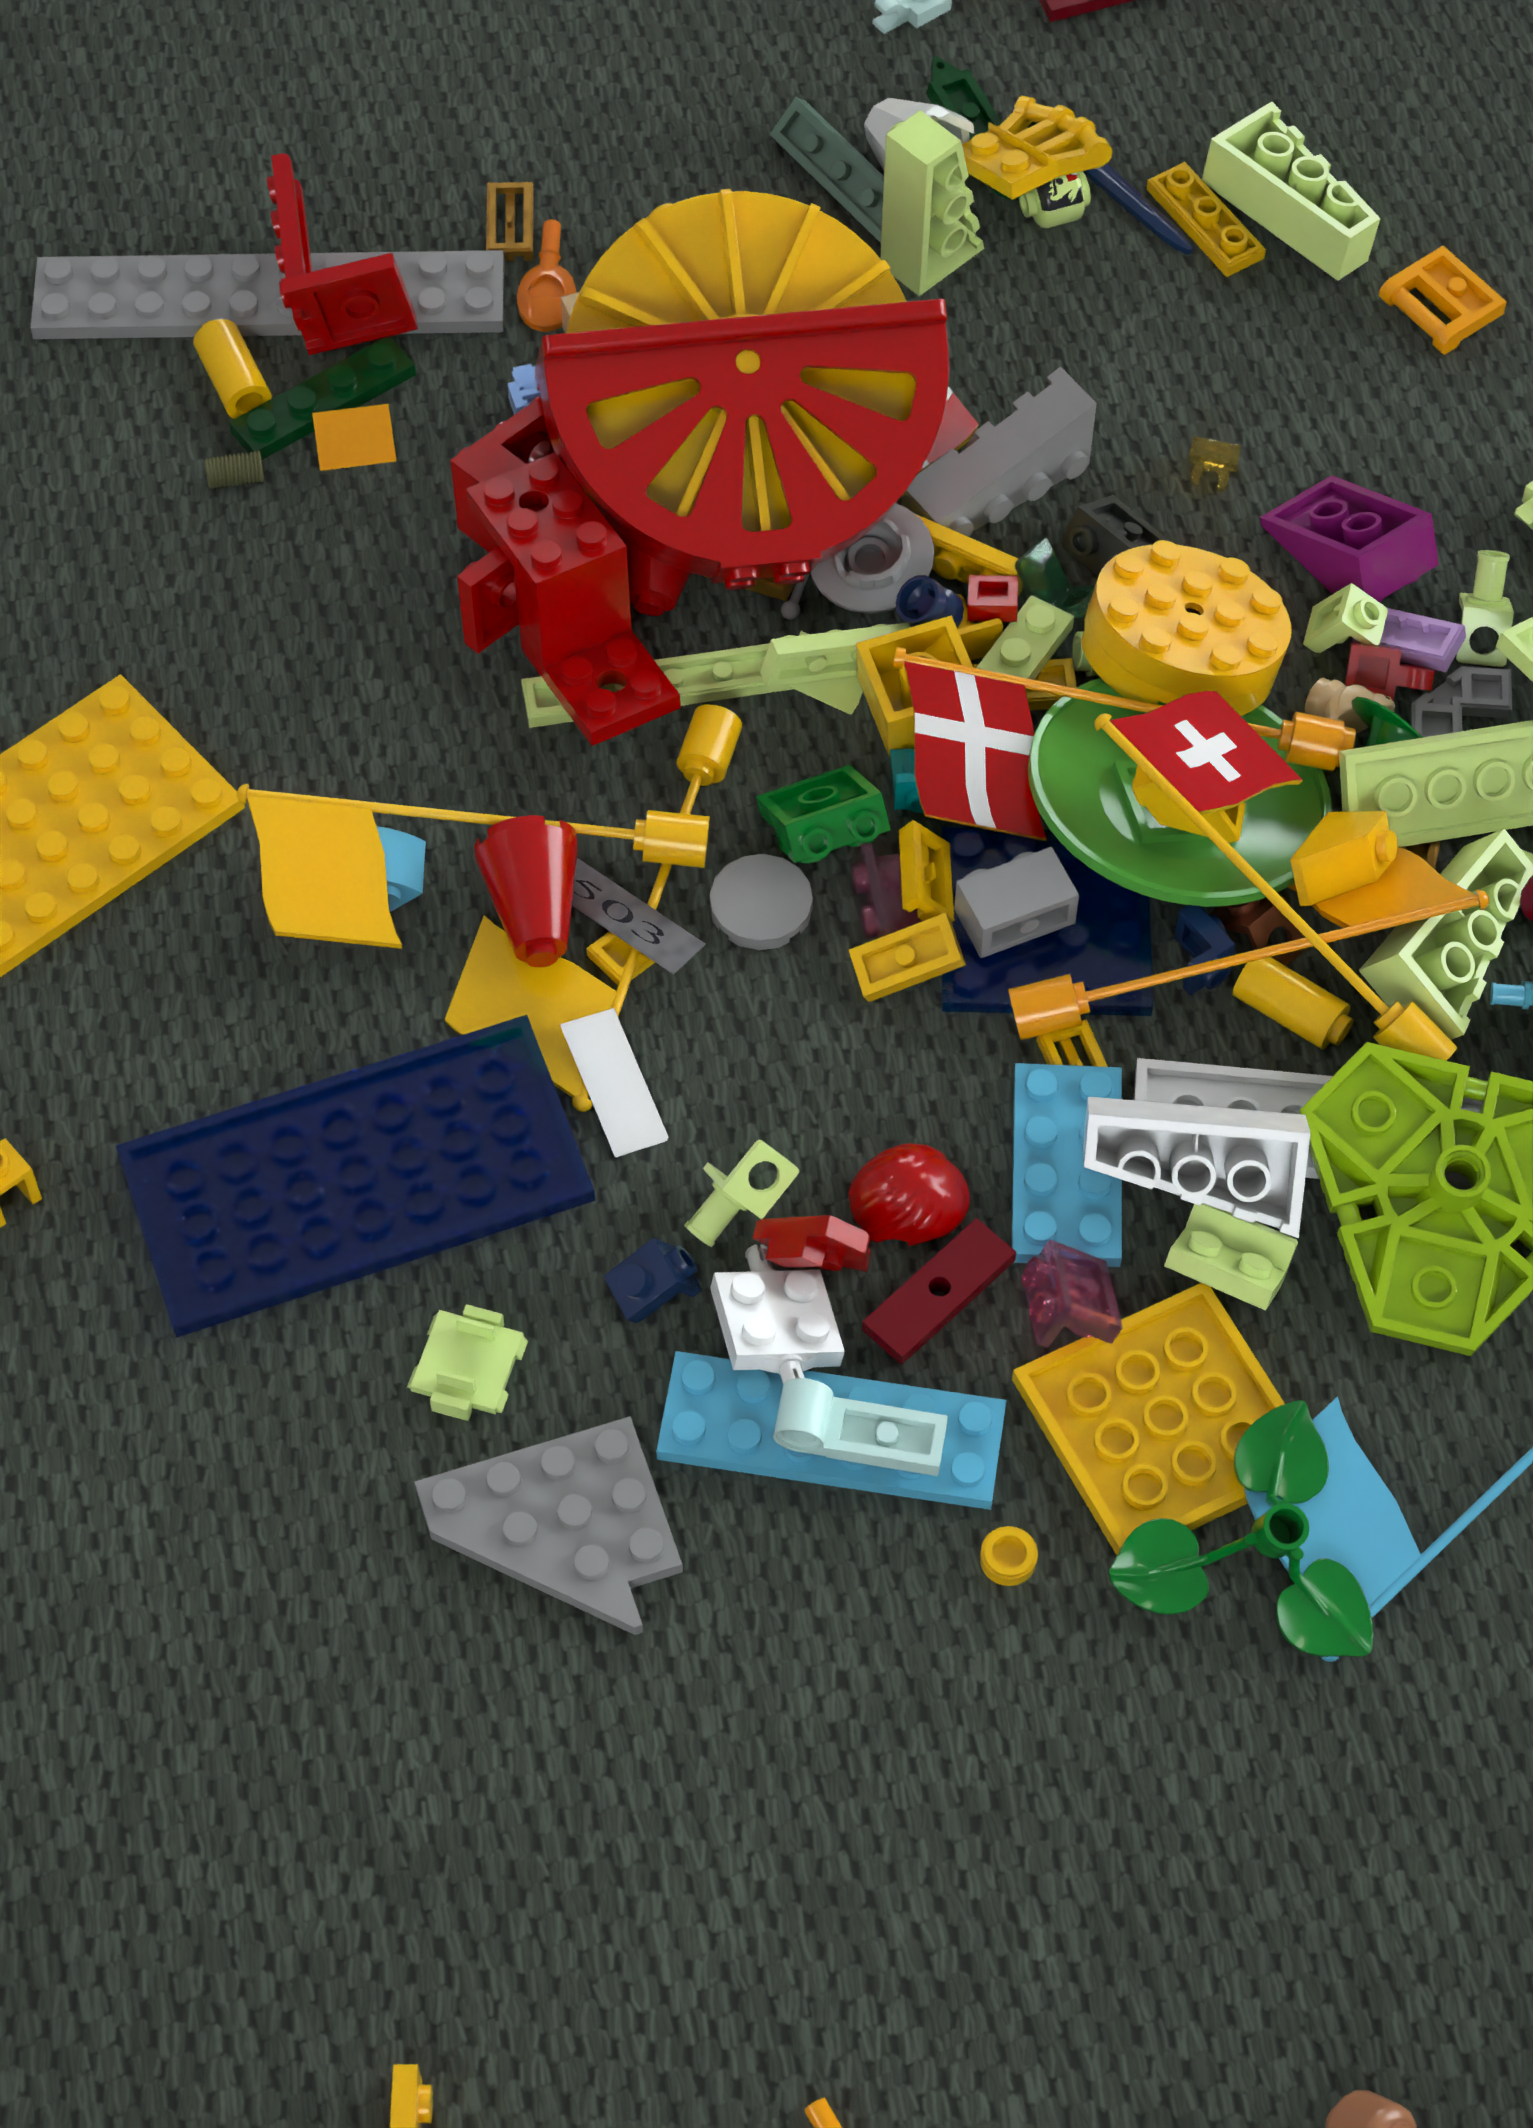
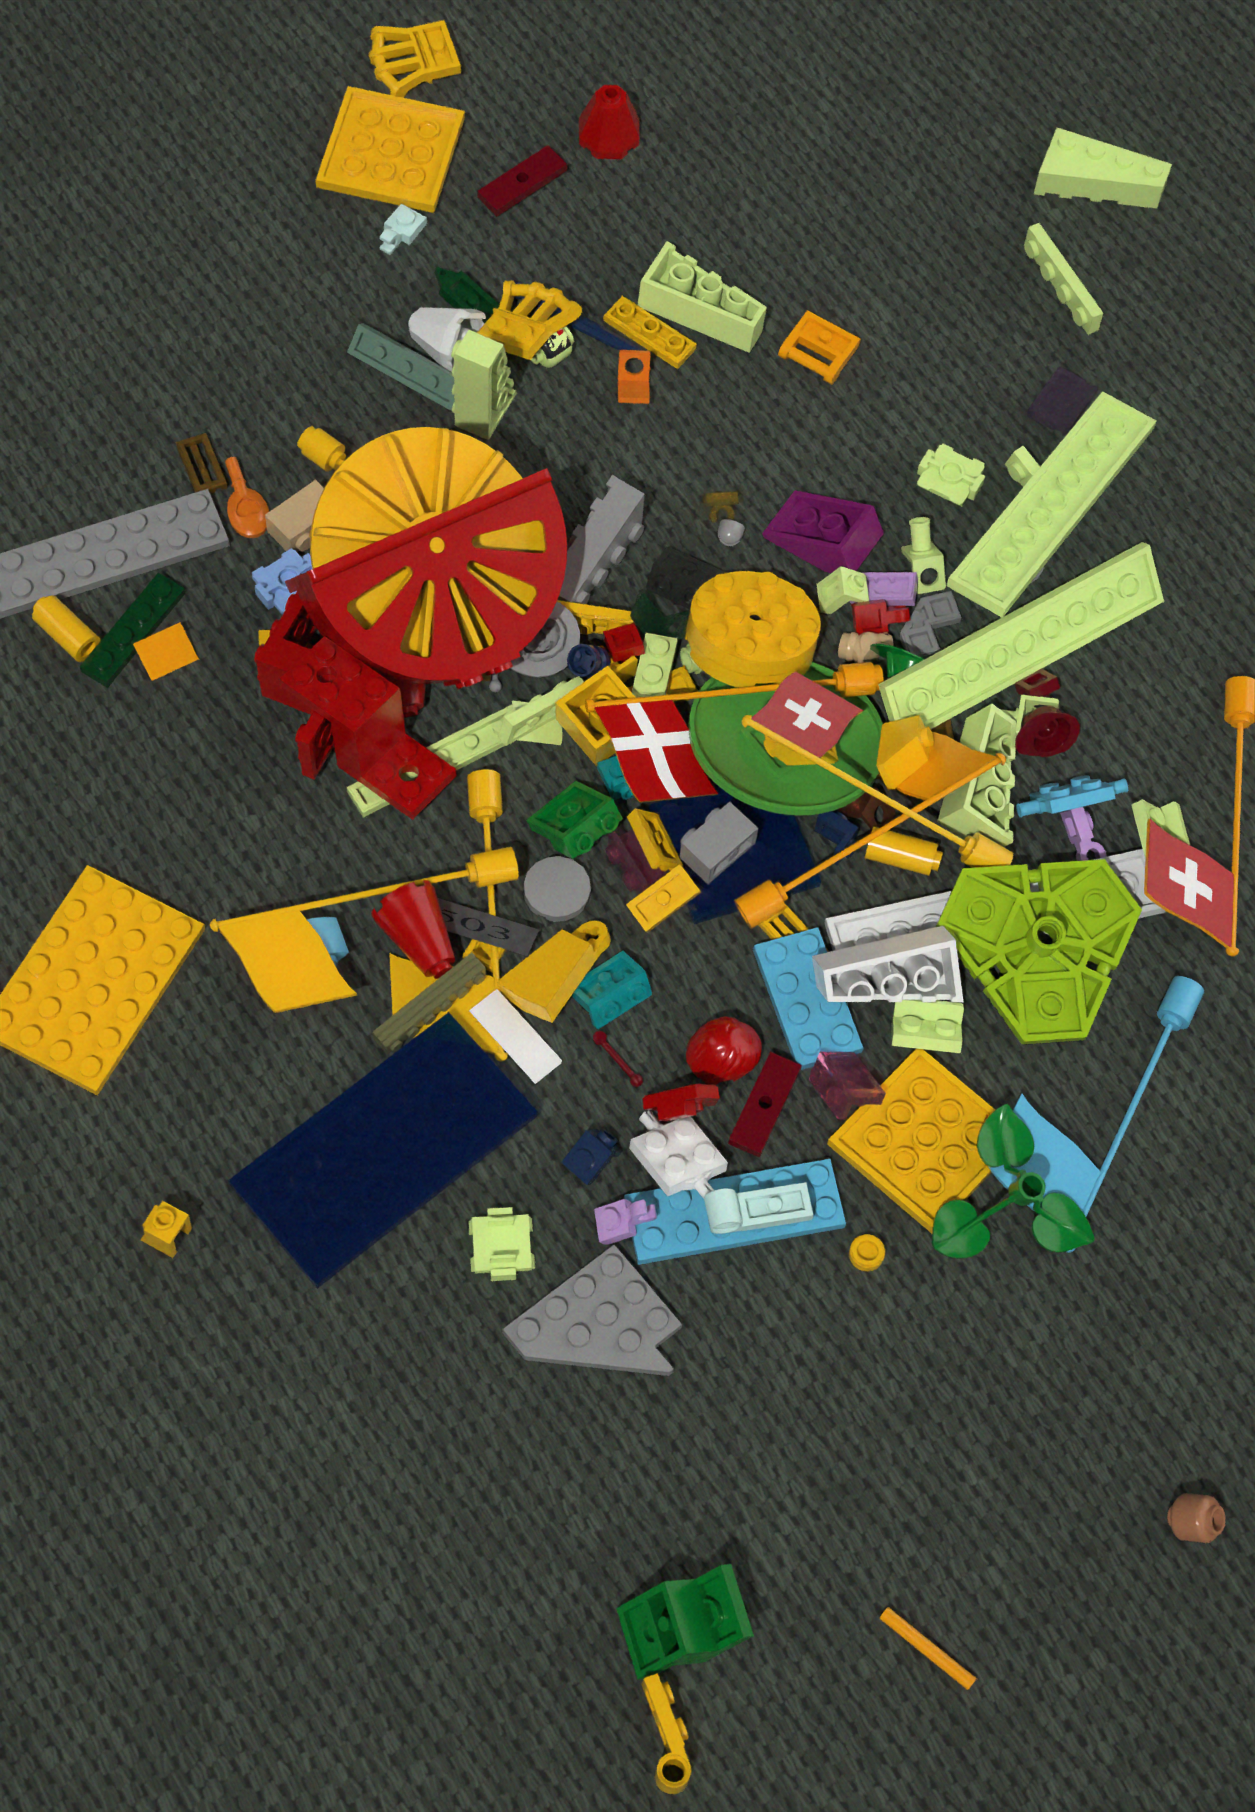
camera: 25 degrees left, 5 degrees up
(225, 468) = (97, 696): olive piece -> none
(338, 302) = (121, 564): red bracket -> none
(494, 2002) = (684, 1621): none -> green bracket
(509, 996) = (429, 1003): none -> olive piece
(651, 1381) = (619, 1219): none -> lavender plate
(707, 1006) = (554, 970): none -> yellow piece
(735, 1192) = (621, 1086): yellowish green bracket -> none
(736, 1124) = (600, 1039): none -> dark red hinge
(779, 1061) = (612, 989): none -> teal bracket
(1155, 280) = (633, 386): none -> orange bracket
(1213, 502) = (730, 532): none -> light grey hinge

